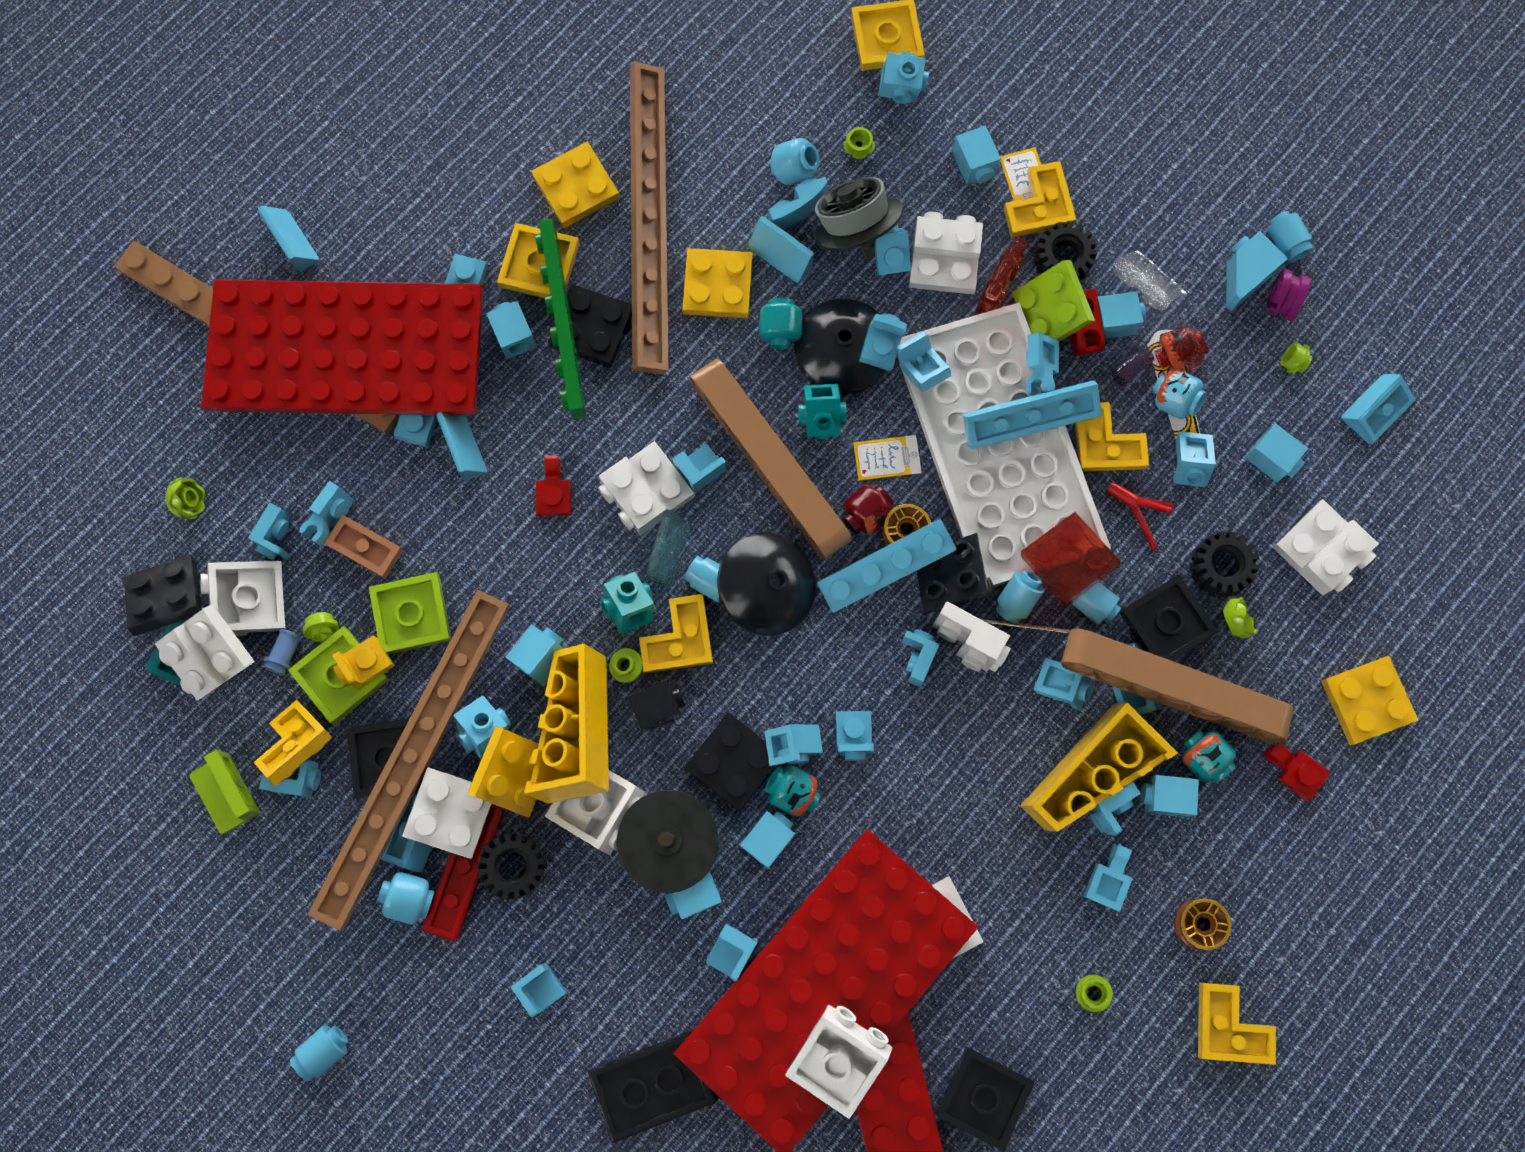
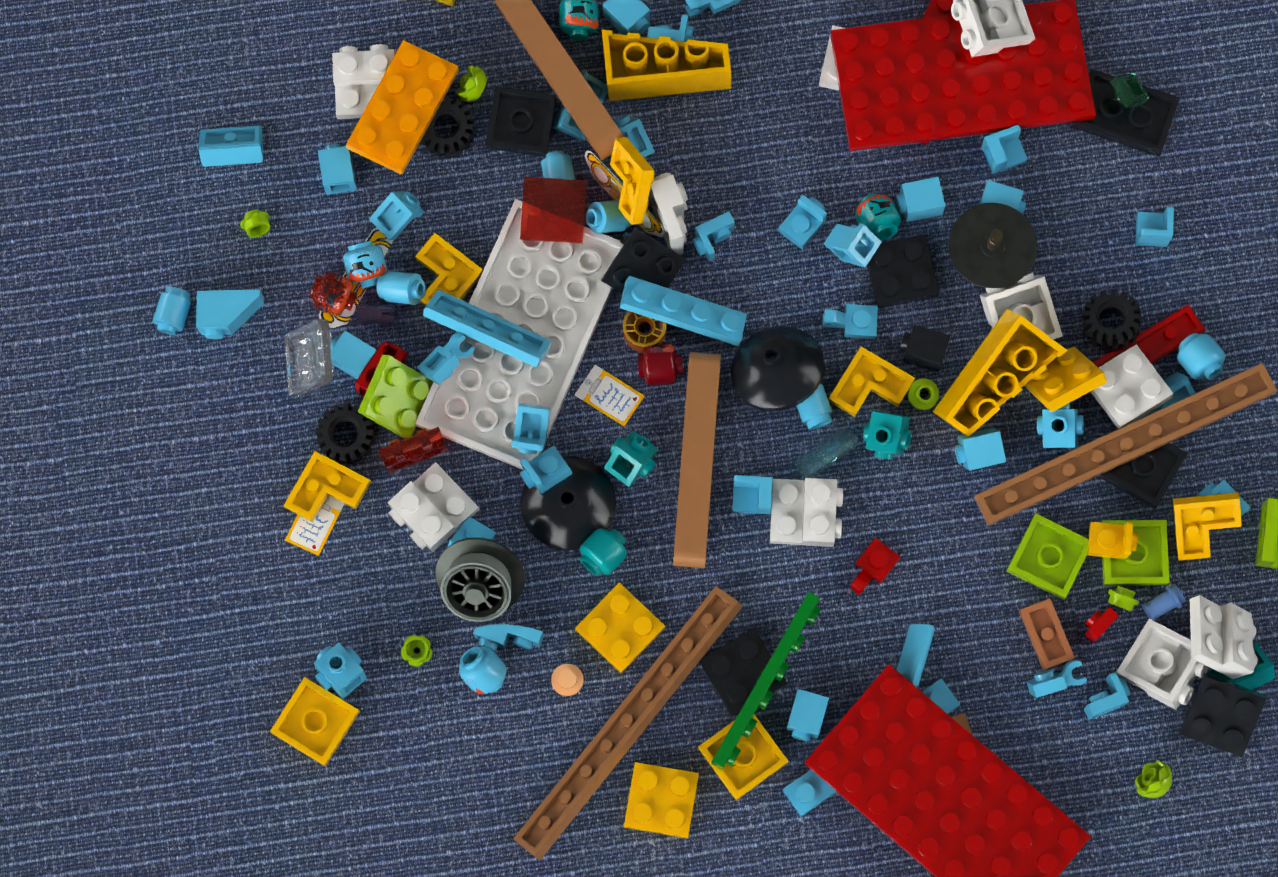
camera: 135 degrees left, 0 degrees up
(323, 589) = (1099, 623): none -> red plate
(660, 1105) = (1129, 90): none -> clear green plate
(724, 212) = (567, 679): none -> light nougat plate
(735, 686) = (857, 321): none -> medium azure plate
(781, 250) = (552, 611): medium azure slope -> none
(976, 155) = (340, 562): medium azure brick -> none
(1026, 631) = (636, 177): none -> yellow plate
(1132, 398) = (401, 287): none -> medium azure brick
(1134, 502) = (464, 215): red plant -> none
(1276, 541) = (402, 107): none -> light orange plate
(1287, 295) = (219, 268): magenta wheel -> none

